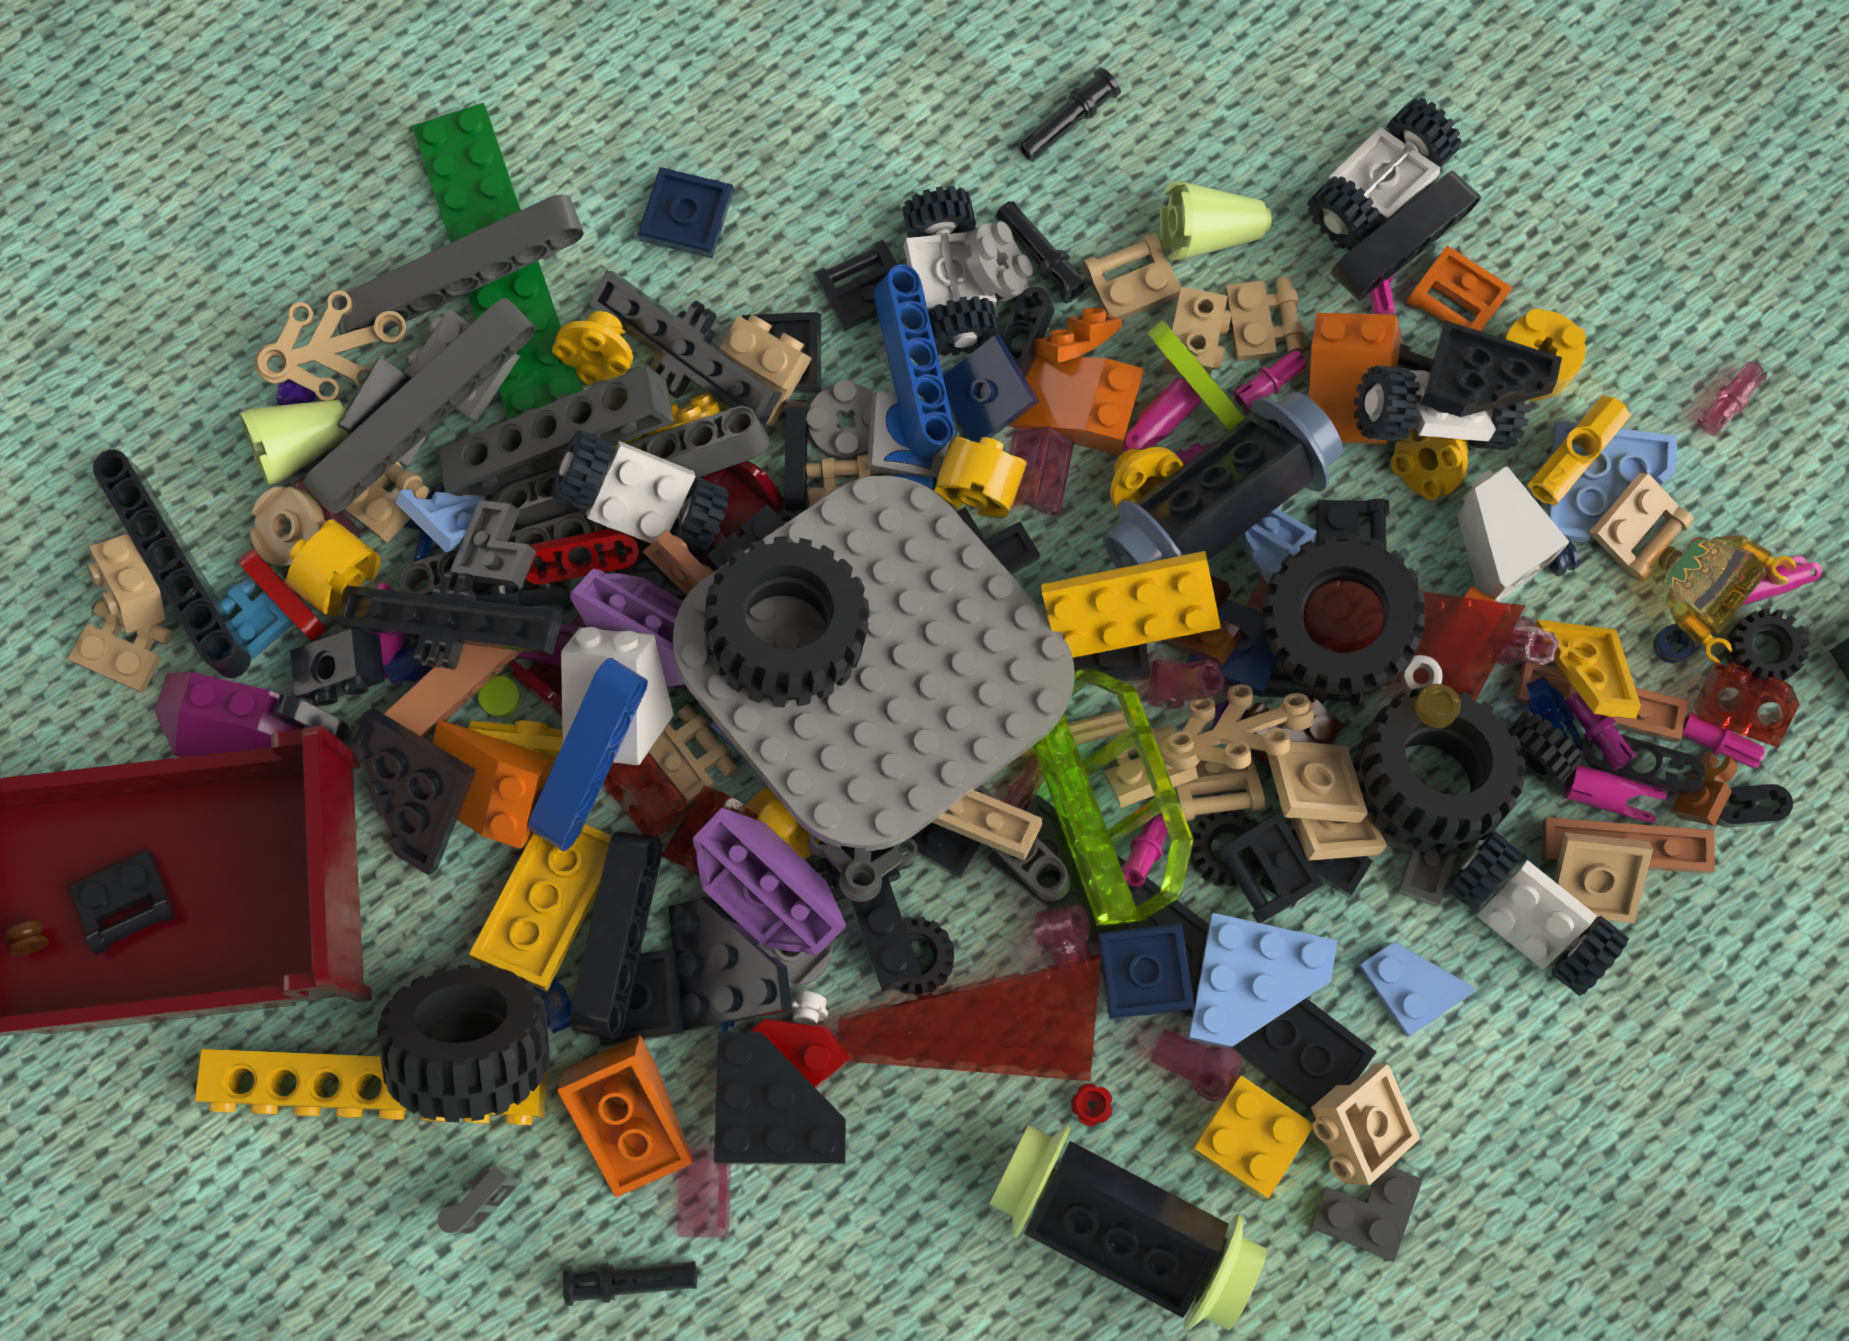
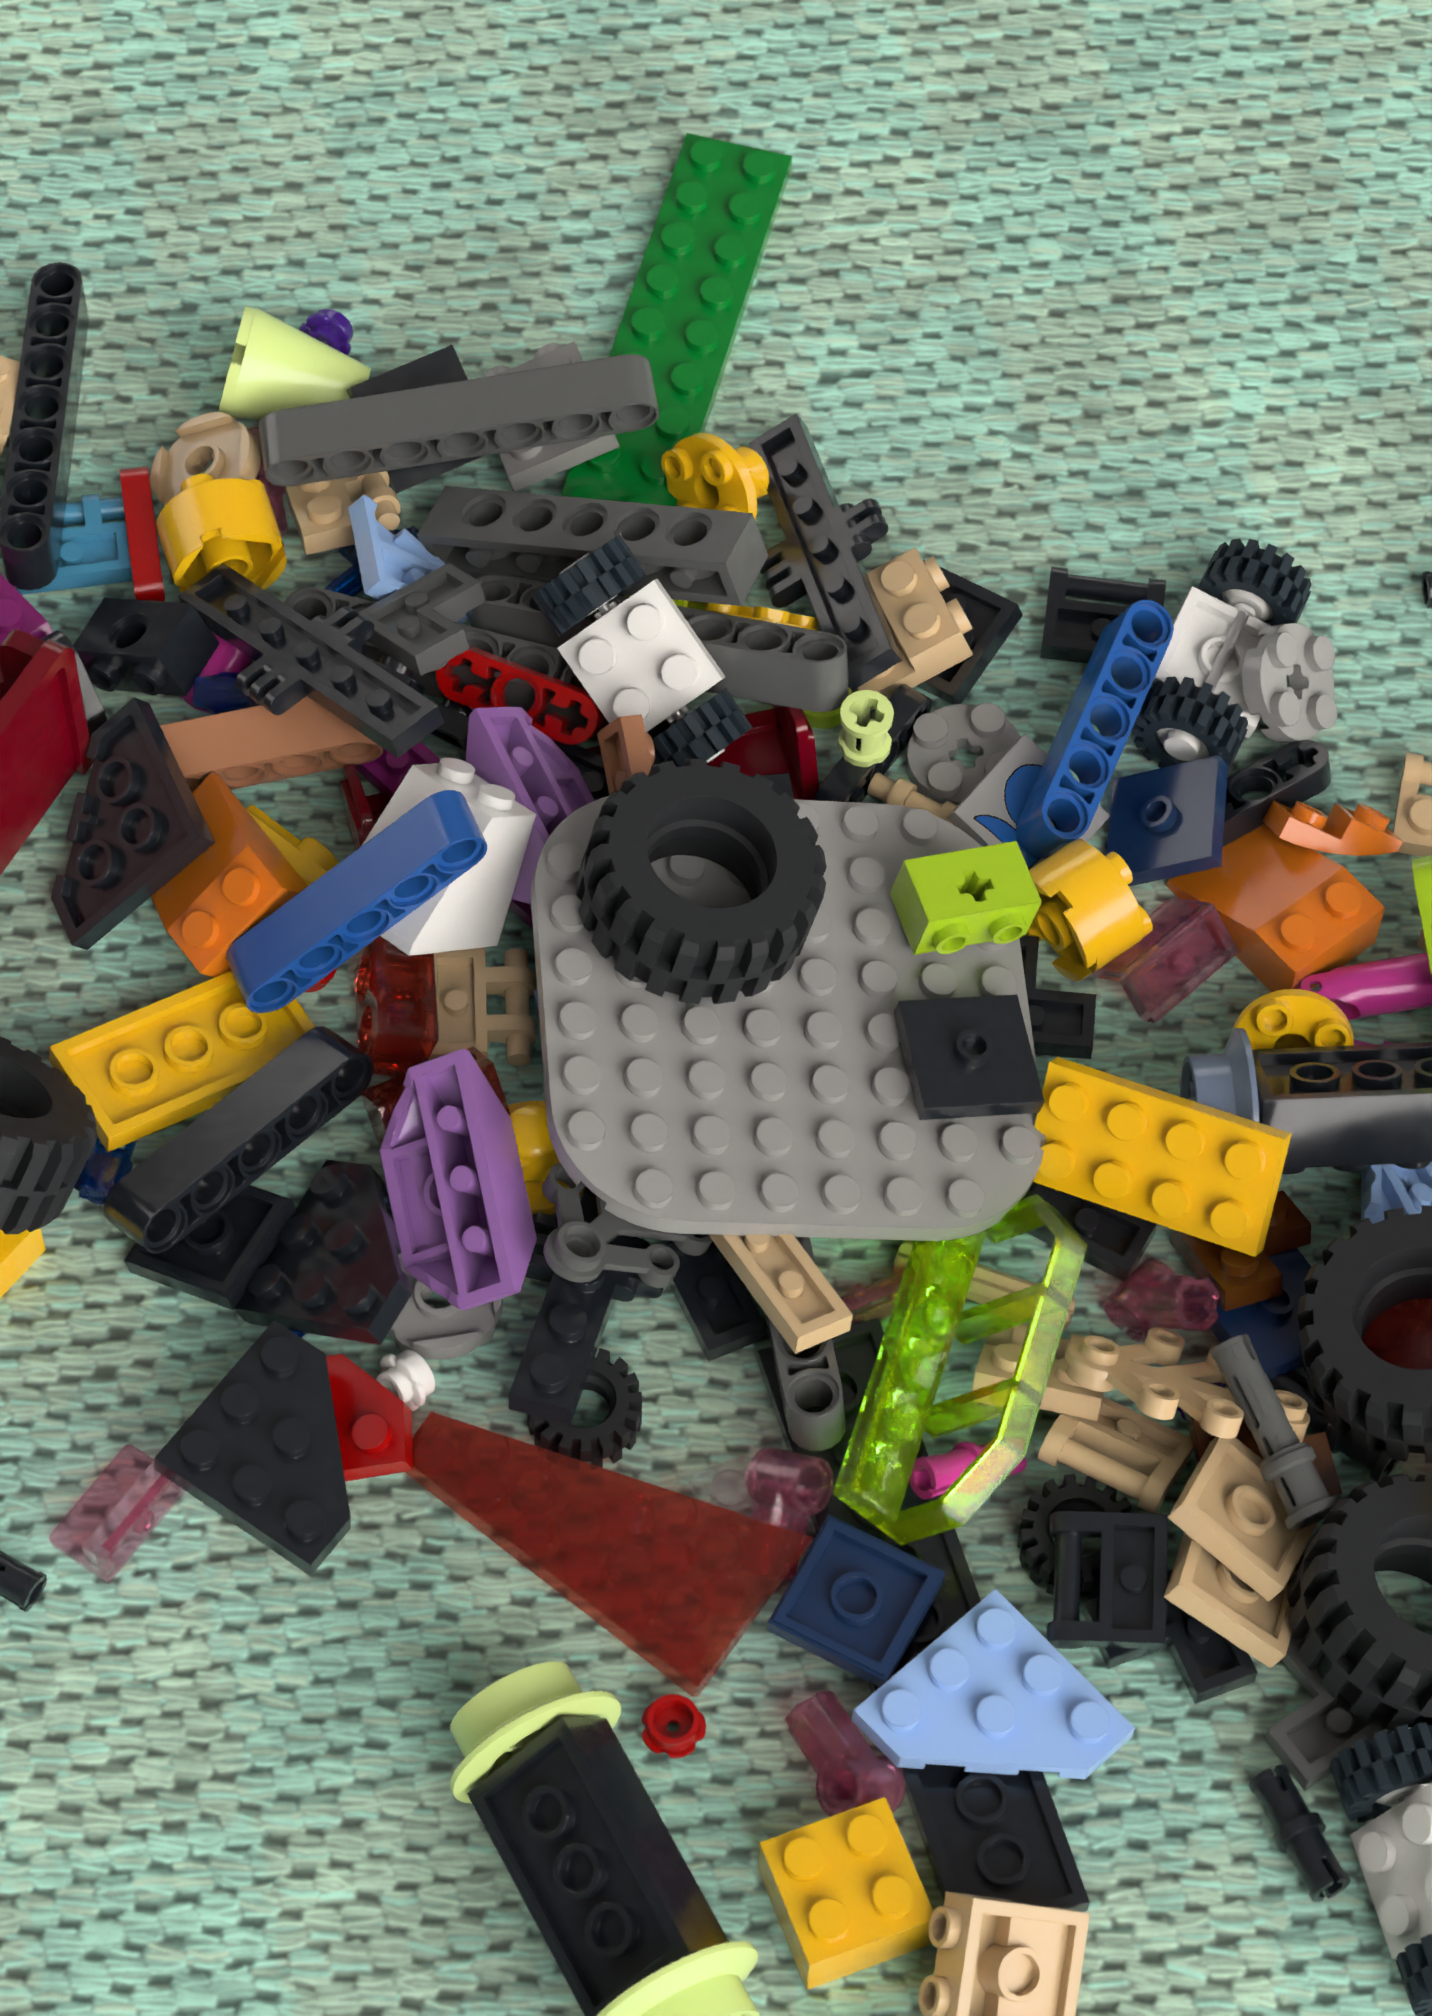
camera: 30 degrees right, 15 degrees down
(324, 348) = (398, 298): tan plant -> none
(464, 264) = (619, 307): dark grey beam -> none
(500, 697) = (307, 806): lime tile -> none
(625, 1116) = (91, 1355): orange slope -> none
(686, 212) = (944, 412): dark blue plate -> none
(779, 443) = (872, 732): none -> yellowish green bush
(927, 522) = (965, 898): none -> lime brick
(993, 617) = (968, 1057): none -> black plate
(1052, 263) = (1364, 732): black pin -> none
(1320, 738) = (1286, 1460): none -> dark grey pin
(1412, 986) = (1200, 1865): light blue wing -> none
(1452, 934) = (1299, 1833): none -> black pin

